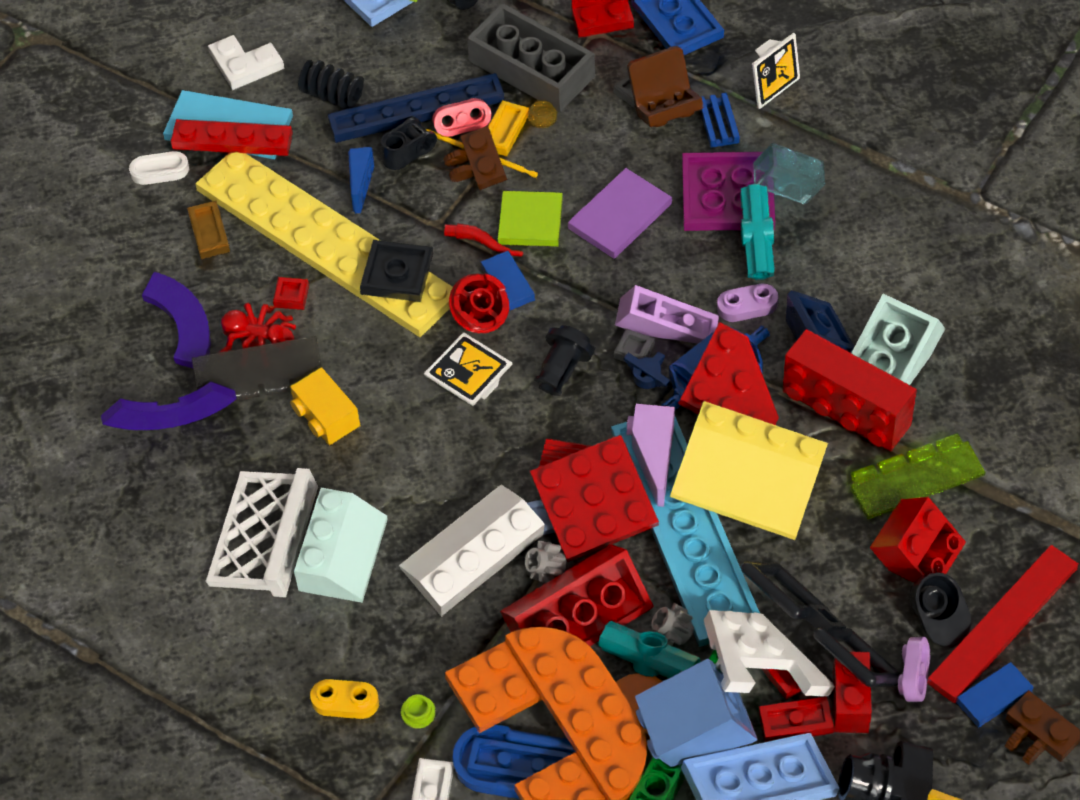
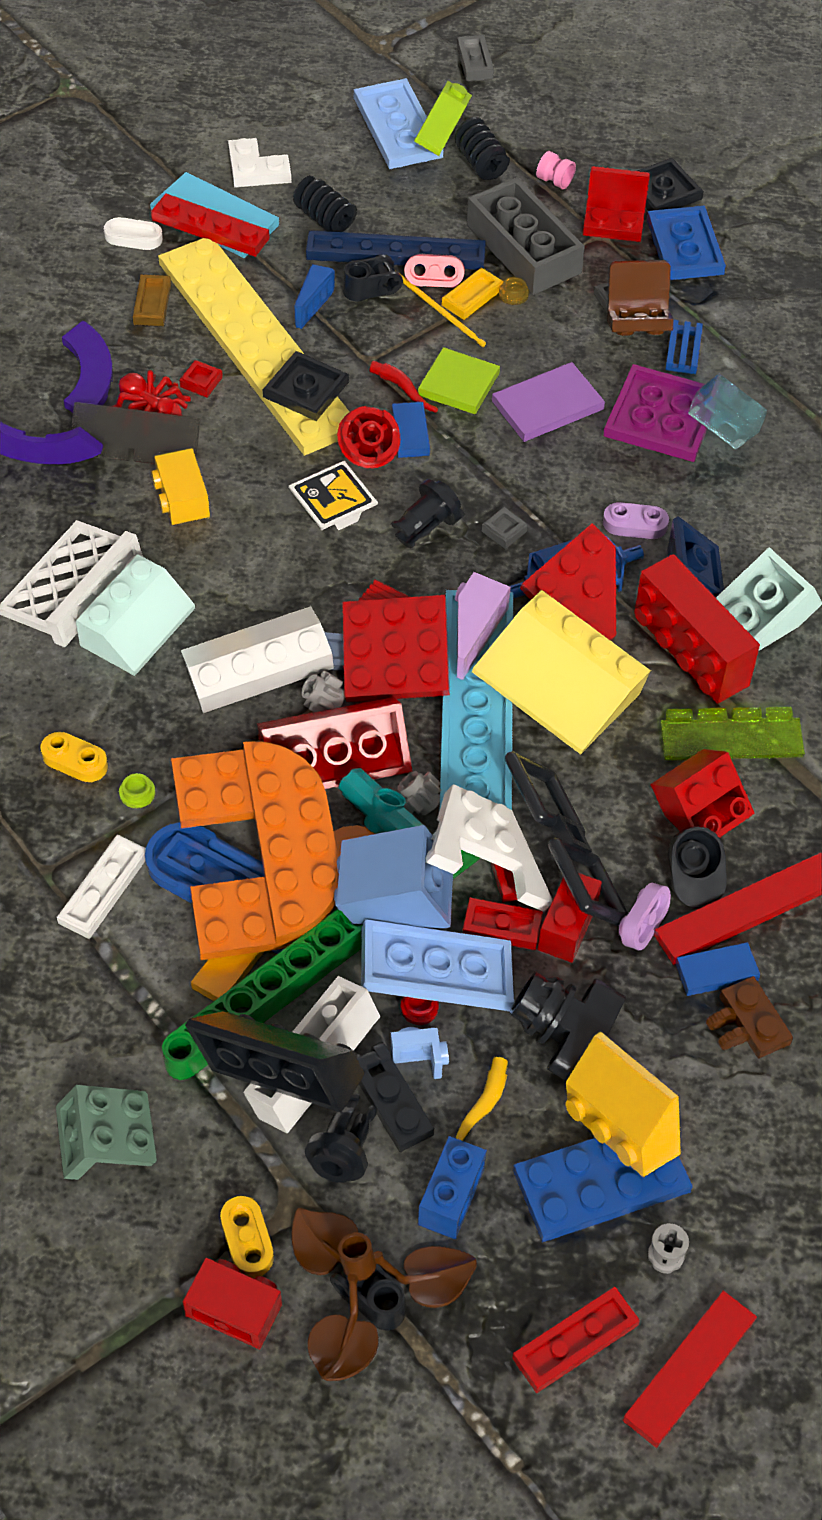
camera: 15 degrees right, 0 degrees up
(483, 160) = (437, 311): reddish brown hinge -> none
(649, 367) = (510, 548): dark blue piece -> none
(663, 316) = (543, 505): lavender slope -> none
(757, 232) = (671, 456): teal piece -> none
(775, 68) = (758, 313): piece -> none

